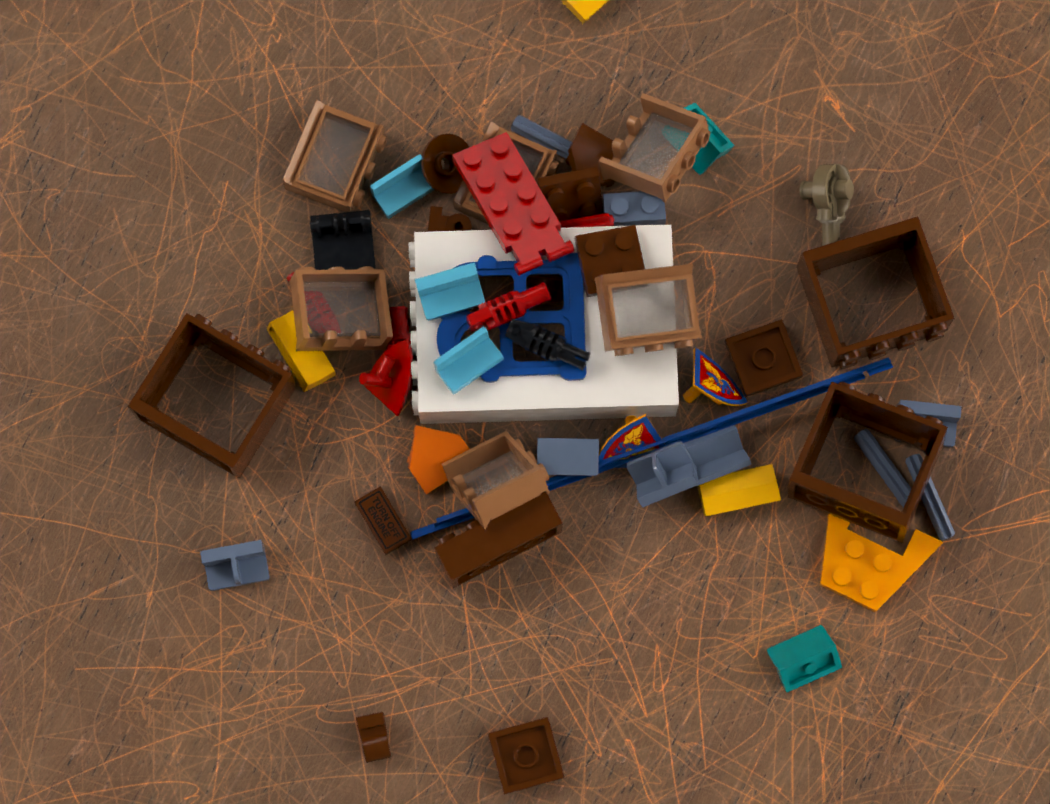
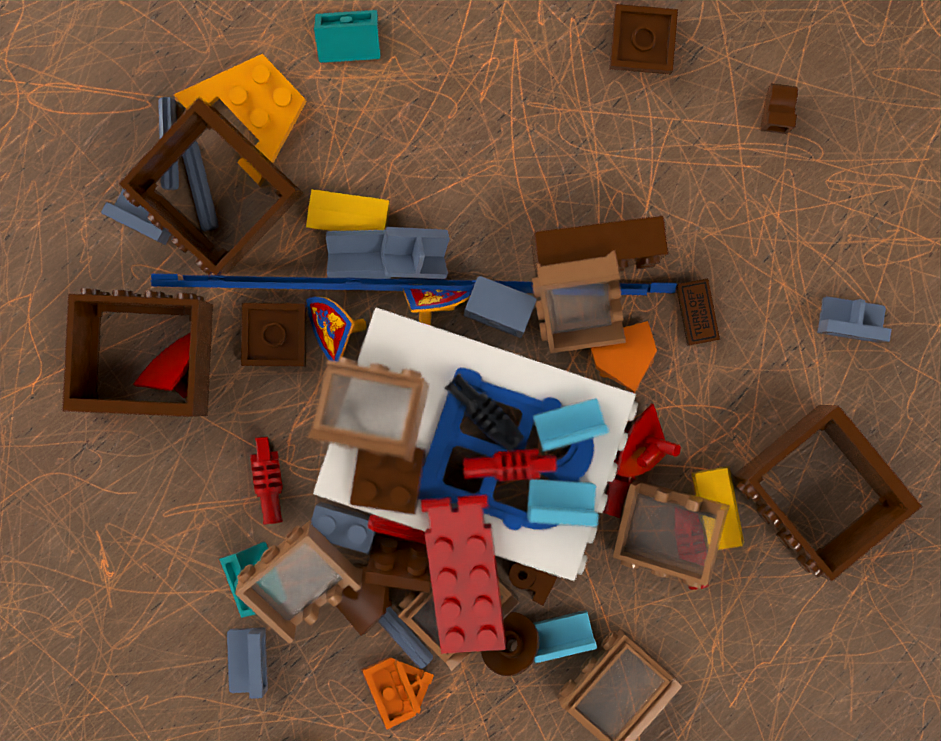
camera: 160 degrees left, 10 degrees up
(343, 240) = (640, 603): black hinge -> none
(532, 90) = (396, 689): none -> orange slope
(674, 67) = (247, 661): none -> sand blue panel
(718, 228) = (267, 480): none -> red hinge
(831, 196) = (142, 469): dark tan pin -> none
(845, 294) = (168, 368): none -> red shield

